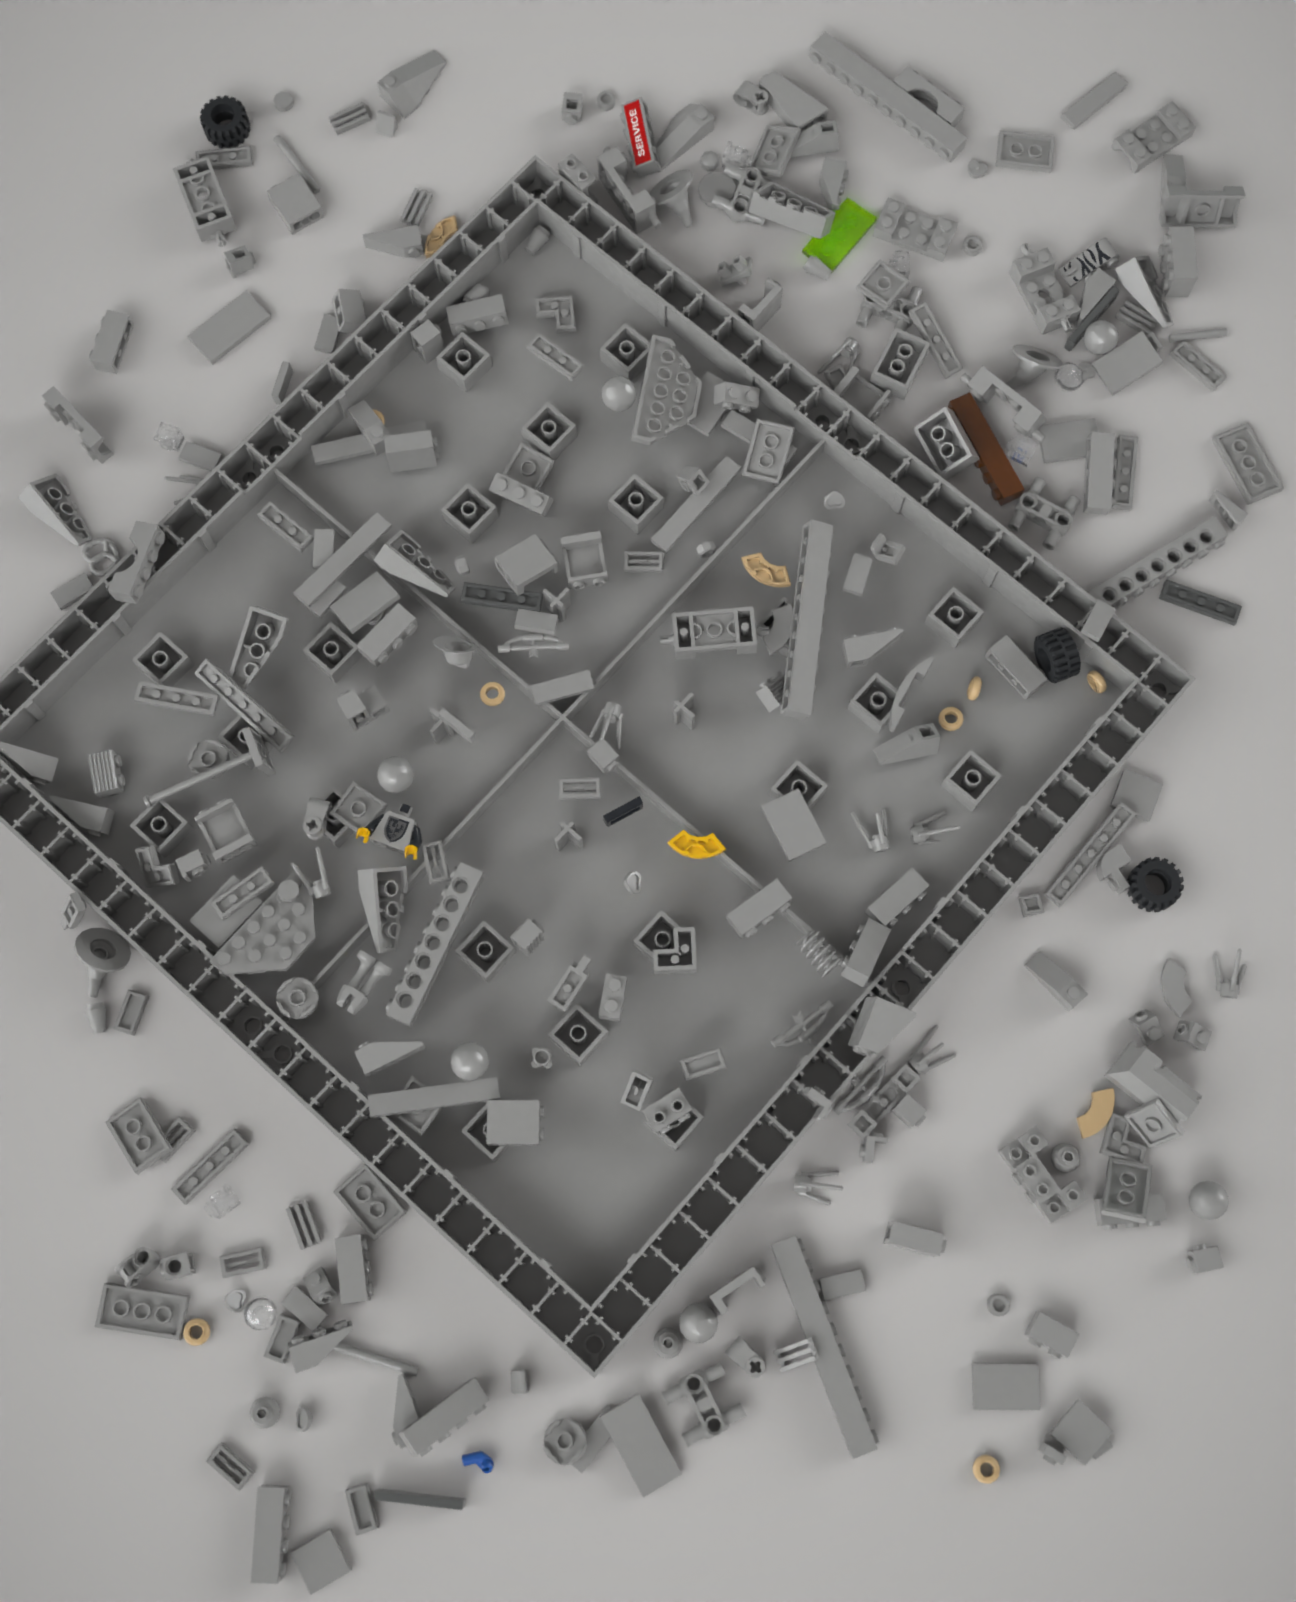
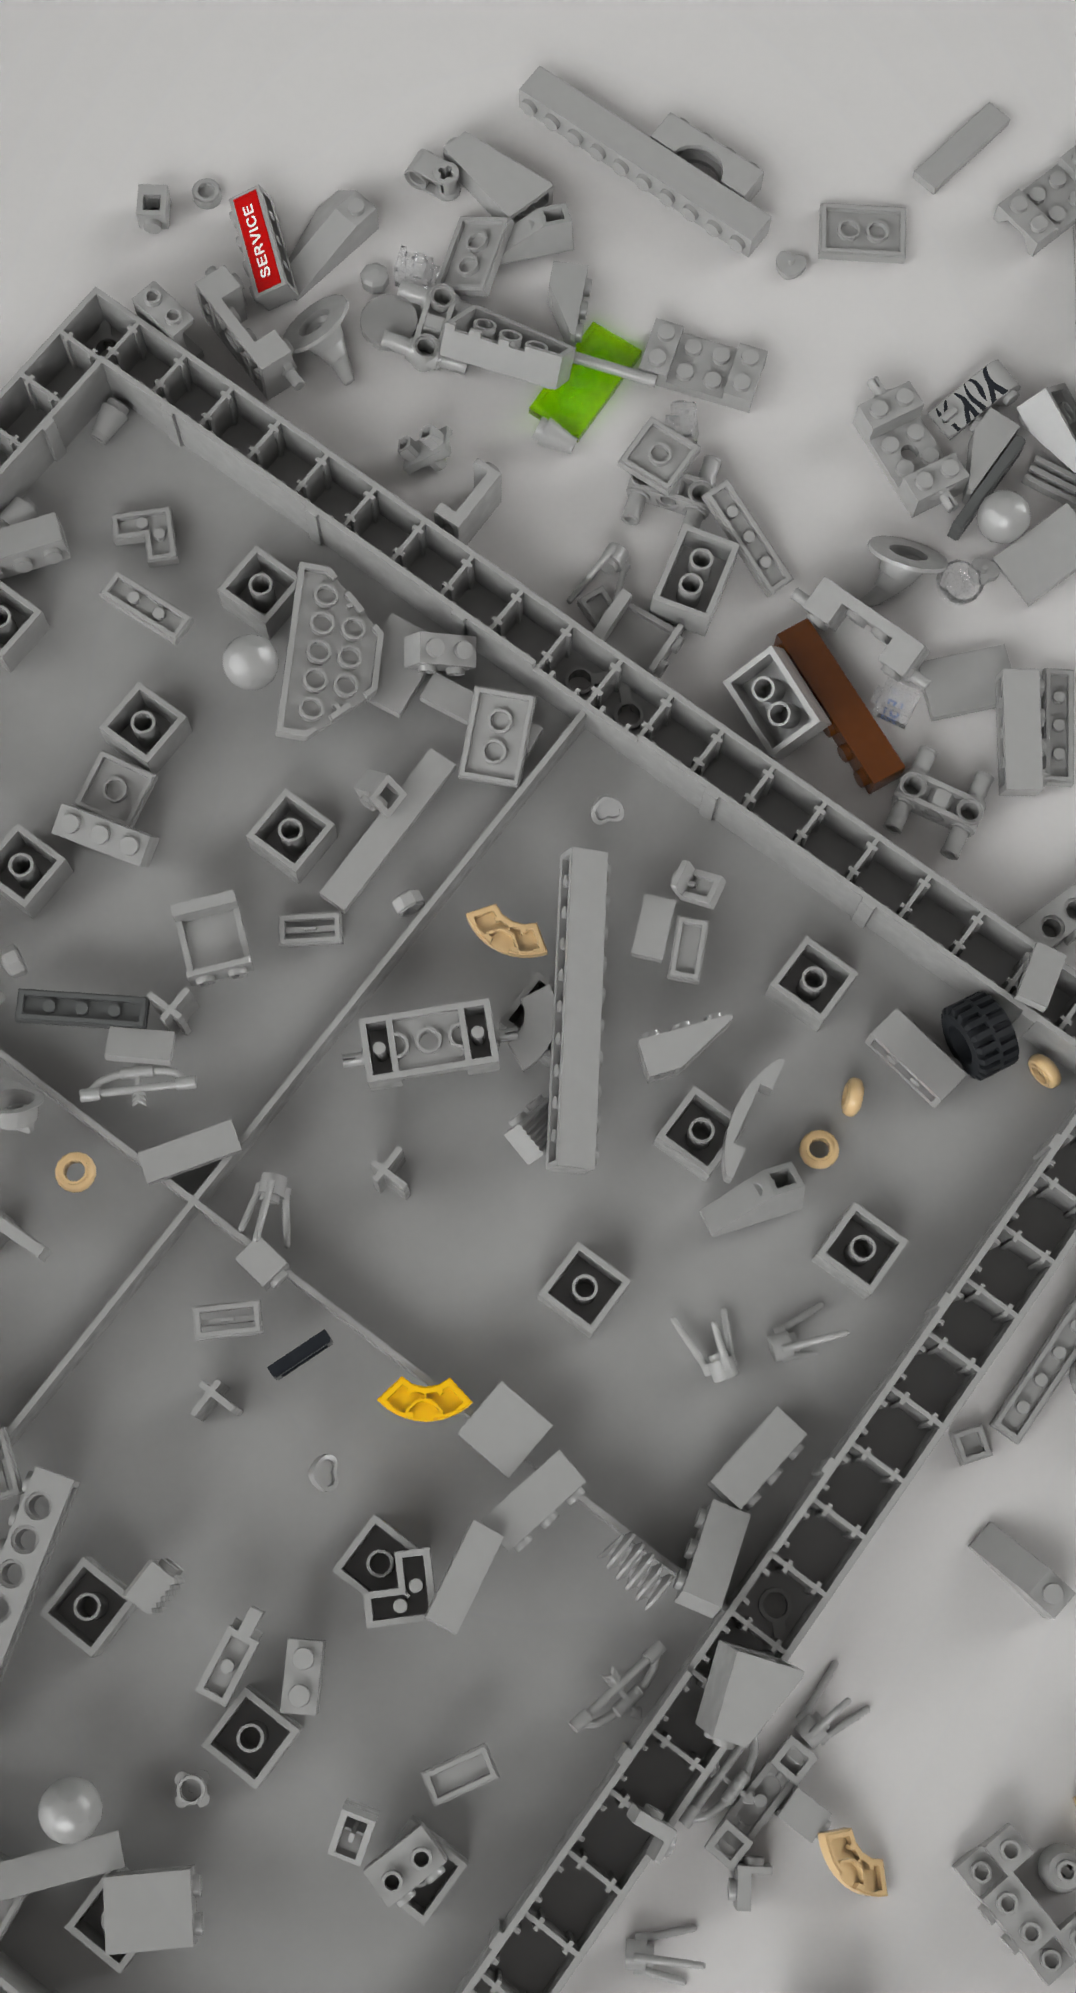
camera: 10 degrees left, 0 degrees up
(526, 563) = (117, 950): light grey panel -> none
(714, 945) = (464, 1577): none -> light grey tile
(744, 866) = (505, 1429): none -> light grey tile
(793, 824) = (580, 1352): light grey tile -> none
(859, 228) = (615, 369): none -> light grey bar
(878, 589) = (688, 950): none -> light grey tile
(936, 1142) = (851, 1865): none -> tan tile
(972, 246) = (792, 385): light grey tile -> none

